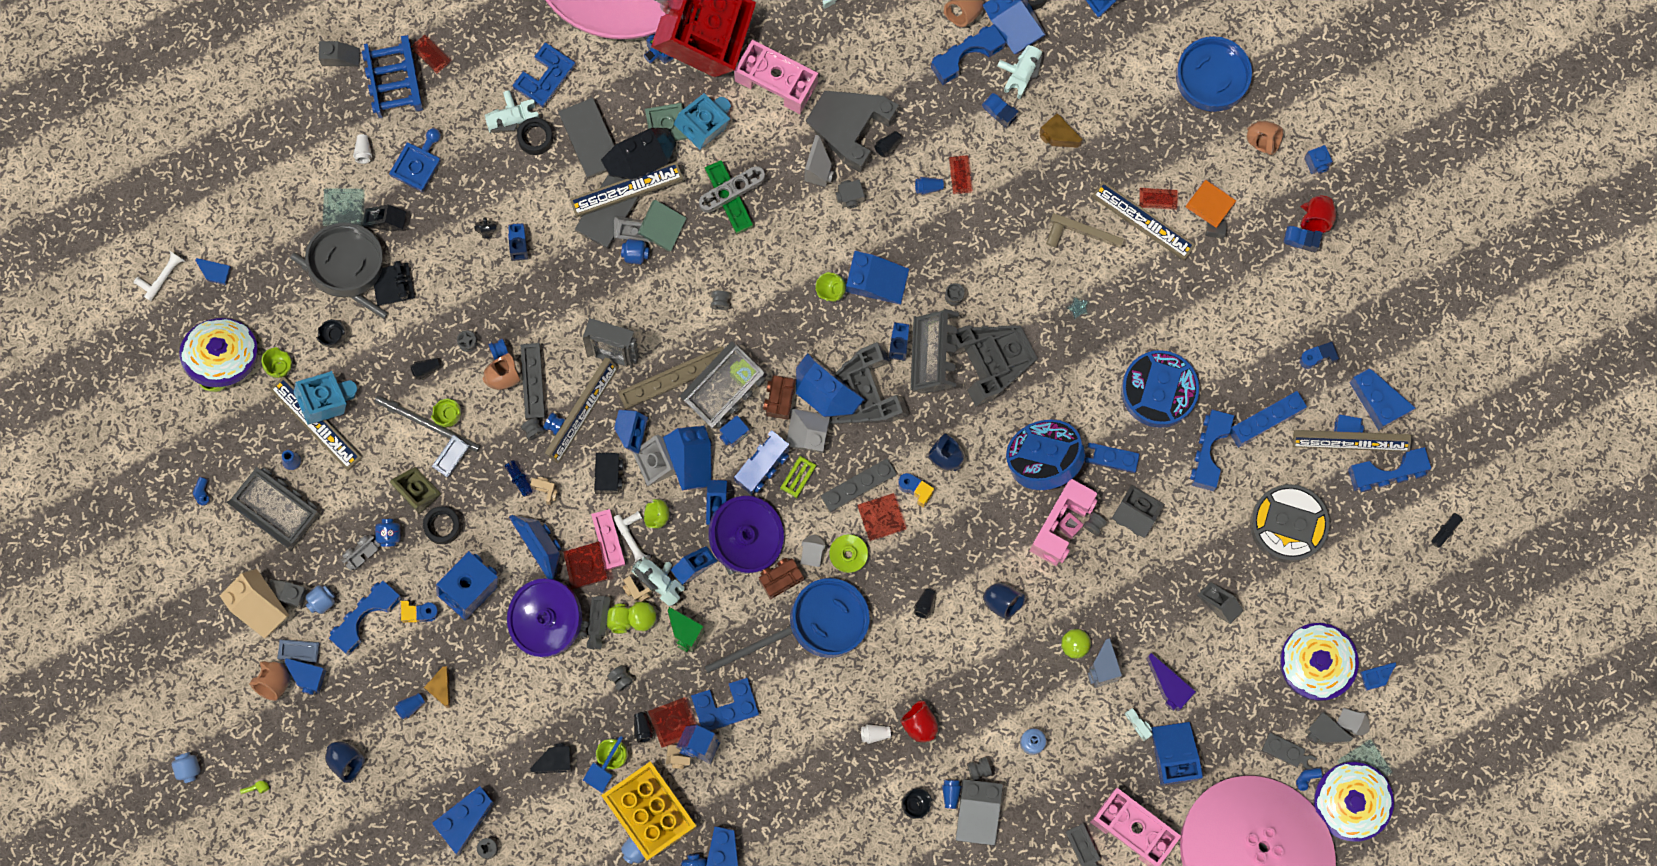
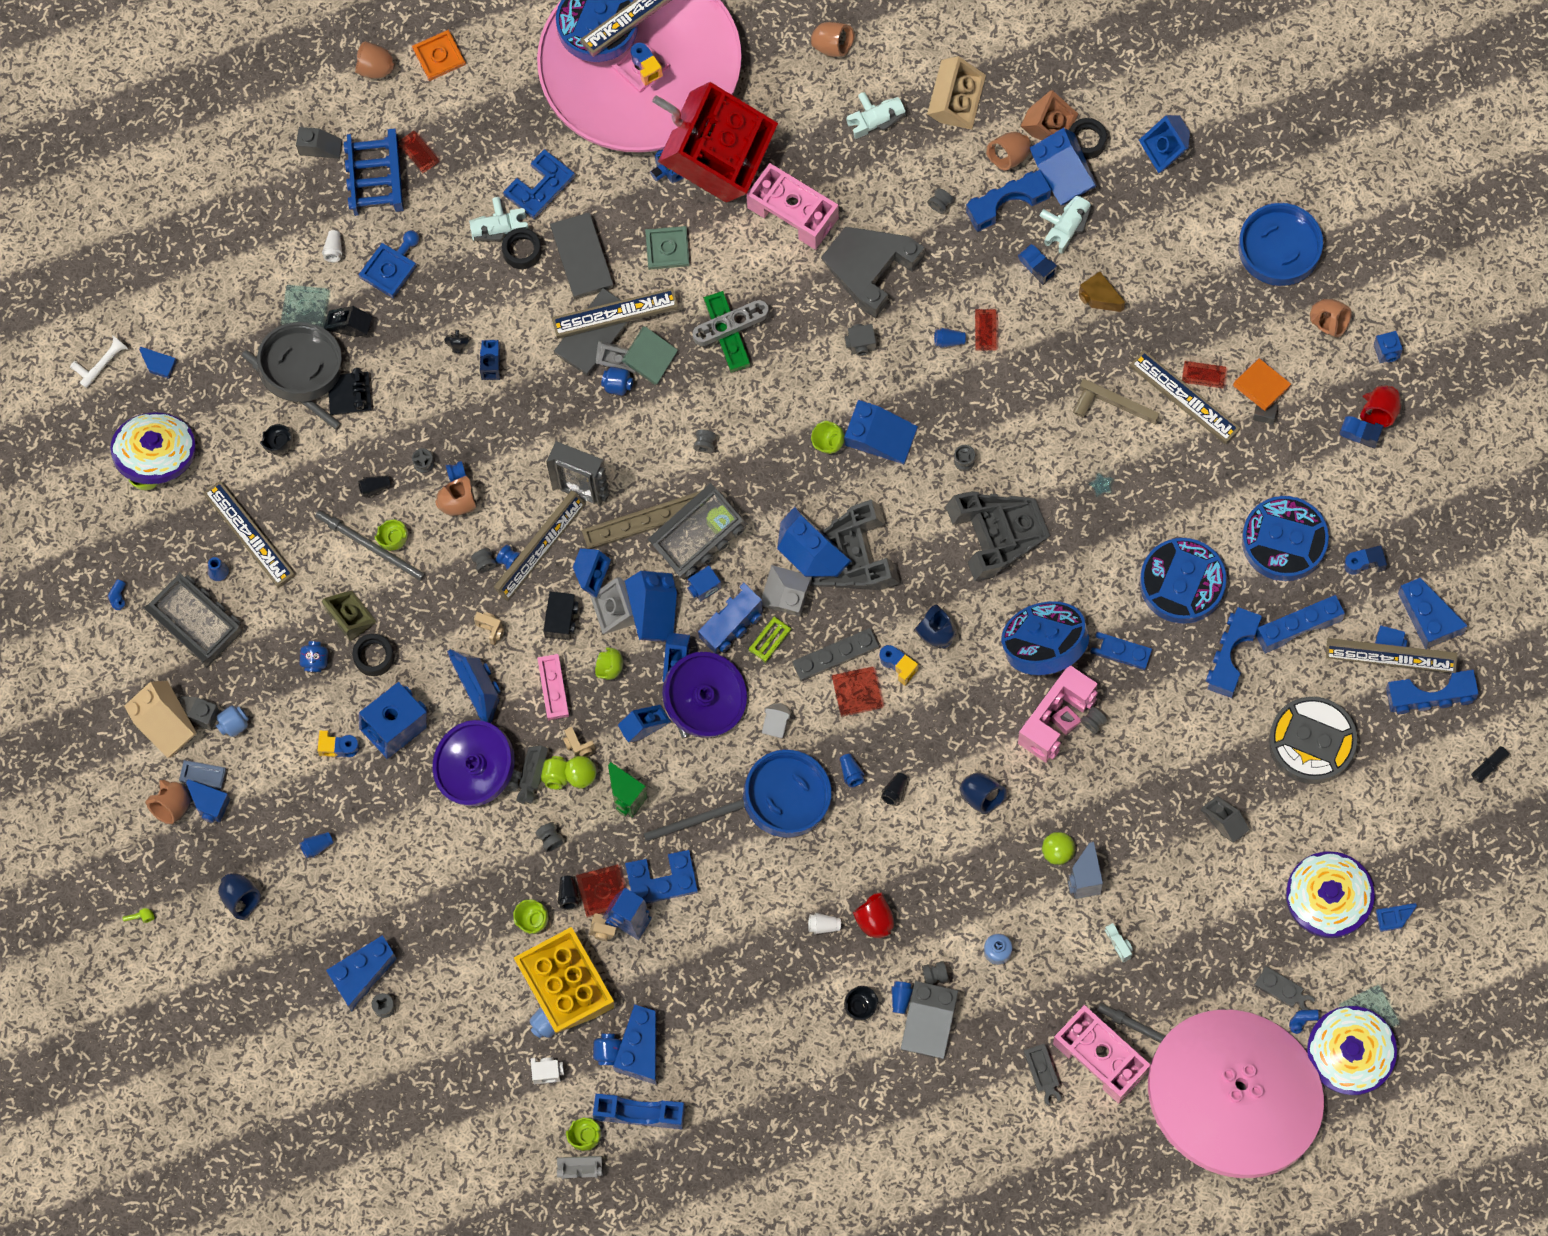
camera: 15 degrees right, 5 degrees down
(185, 767) = (67, 886): medium blue head -> none
(270, 361) = (213, 465): lime hair -> none
(323, 397) = (259, 505): dark azure brick -> none
(364, 546) = (273, 679): light grey hinge -> none
(380, 599) = (298, 727): blue arch -> none
(439, 686) = (351, 827): pearl gold slope -> none
(451, 456) = (391, 581): tile -> none
(518, 478) = (462, 612): clear blue axle -> none
(532, 381) = (489, 509): dark grey plate -> none
(554, 760) = (466, 918): black slope -> none
(586, 565) = (525, 712): clear red tile -> none
(597, 775) = (512, 939): blue piece -> none
(622, 526) = (570, 673): white piece -> none
(640, 154) = (634, 276): black wedge -> none
(658, 580) = (603, 734): light aqua piece -> none
(703, 119) = (708, 245): dark azure brick -> none
(780, 397) = (759, 551): copper brick -> none
(780, 578) = (738, 745): copper brick -> none
(818, 165) = (828, 306): light grey slope -> none
(851, 544) = (815, 716): lime dish -> none
(885, 592) = (851, 771): none -> blue cone
(887, 144) = (907, 290): black cone -> none
(899, 341) = (897, 503): dark blue leg -> none
(907, 60) = (940, 200): none -> dark grey wheel
(930, 350) = (929, 514): dark grey window -> none
(1137, 511) = (1143, 711): dark grey slope -> none
(1146, 792) = (1120, 1017): none -> dark grey bar
(1172, 688) = (1160, 905): dark purple slope -> none
(1176, 754) = (1157, 979): blue slope -> none
(1245, 342) = (1285, 538): none -> brick
(1326, 731) = (1329, 971): dark grey slope -> none
(1354, 722) = (1362, 963): light grey tile -> none

